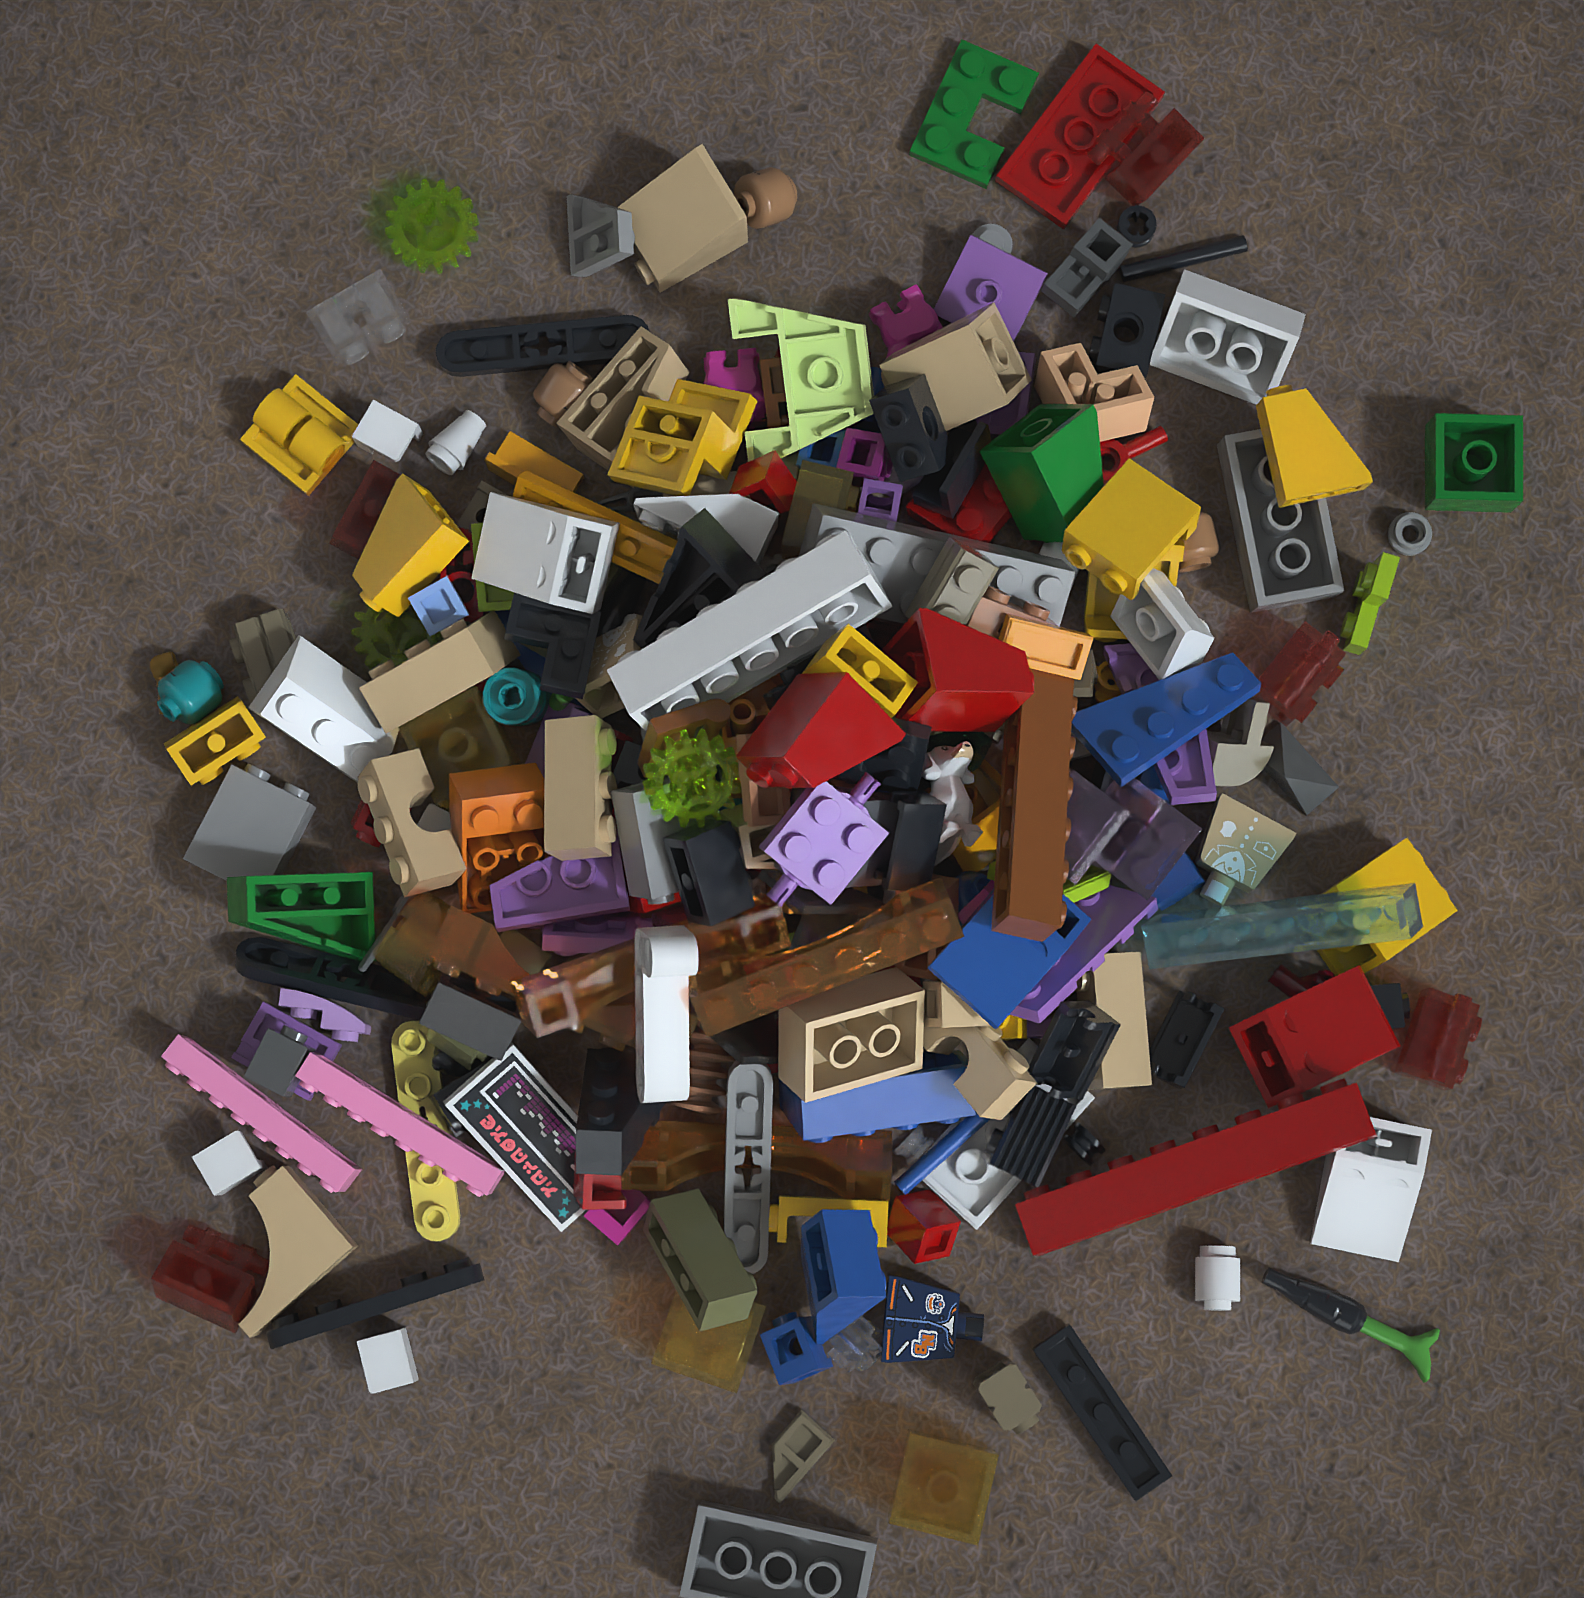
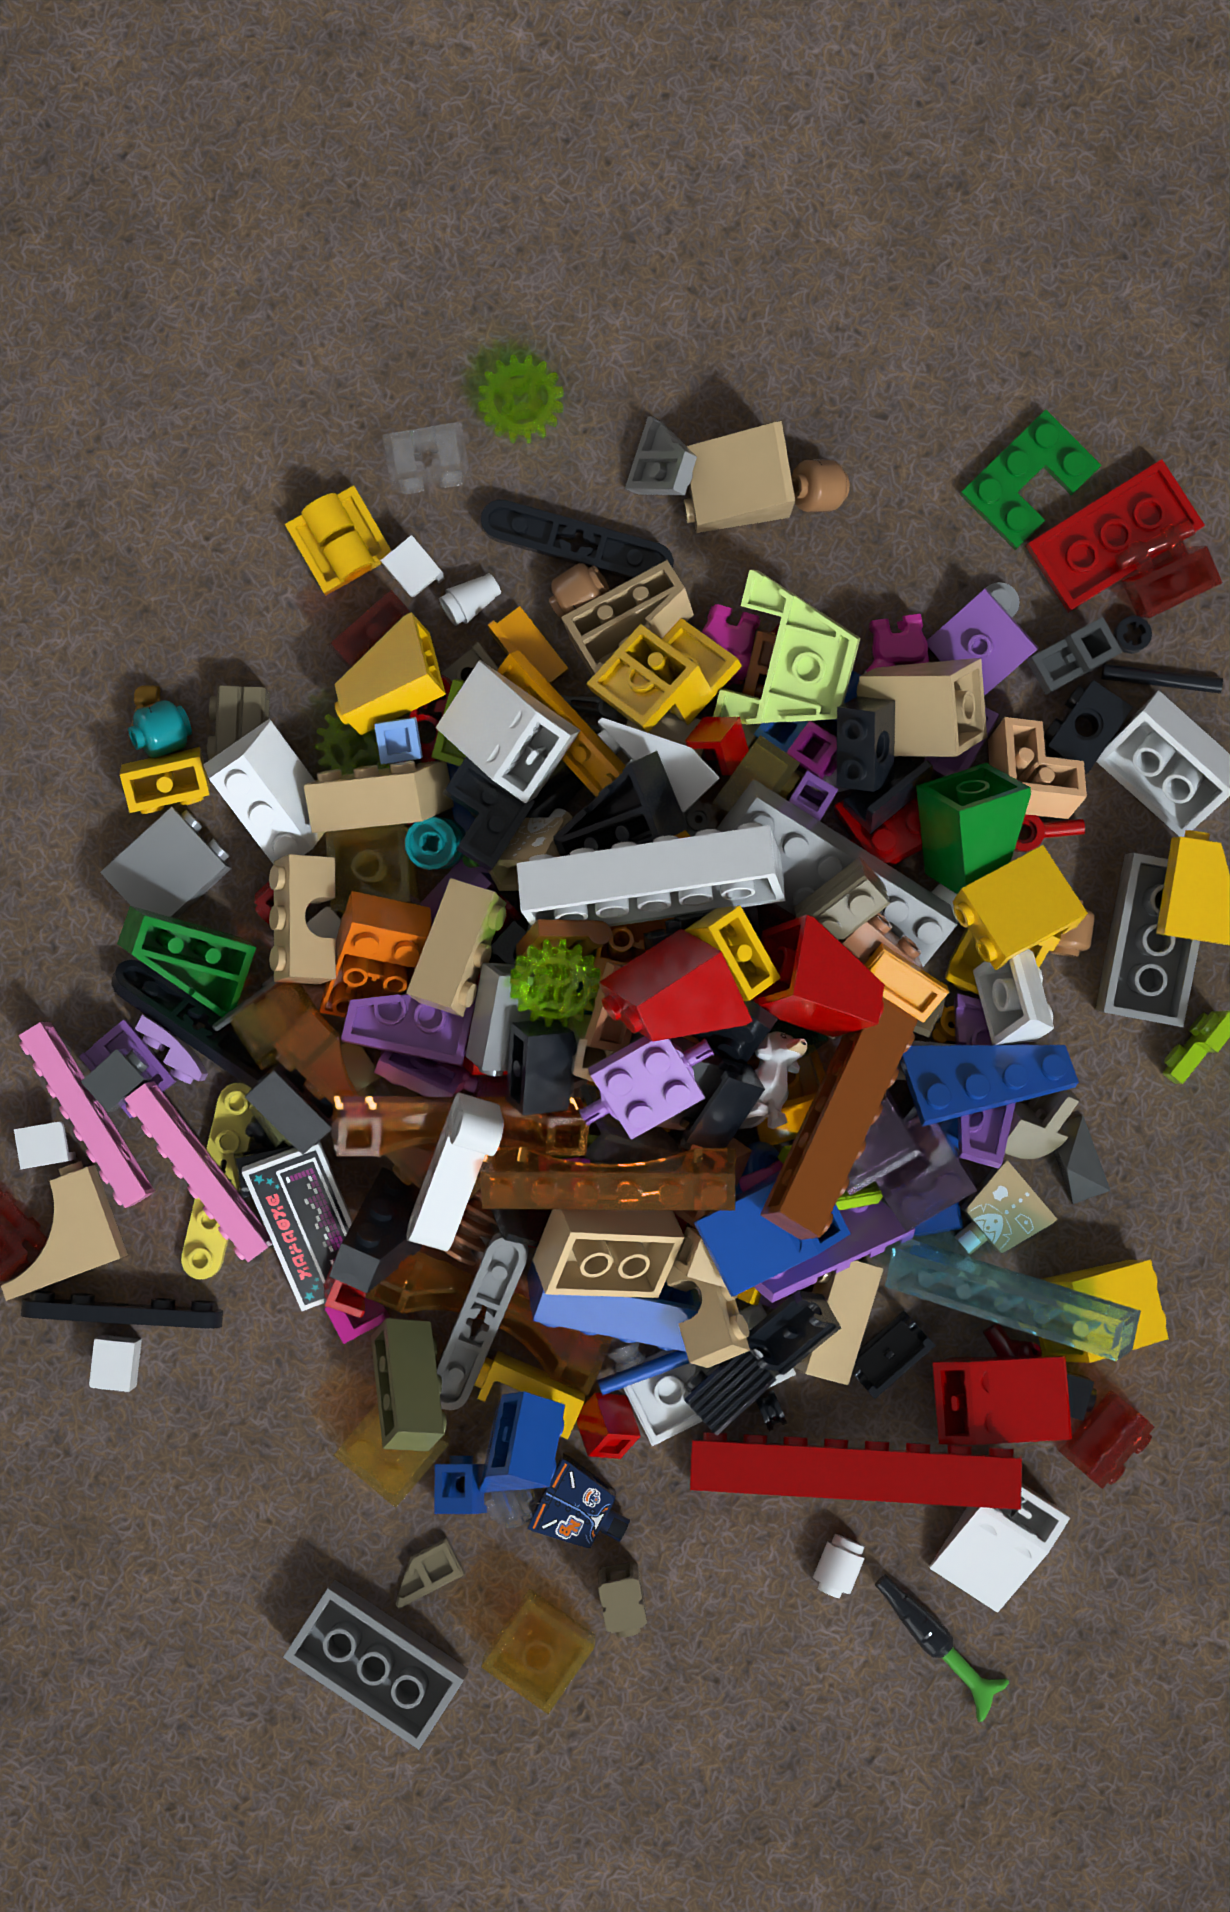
camera: 20 degrees right, 5 degrees up
(1102, 1412) = (697, 1639): black plate -> none
(1299, 672) = (1115, 1080): clear red brick -> none

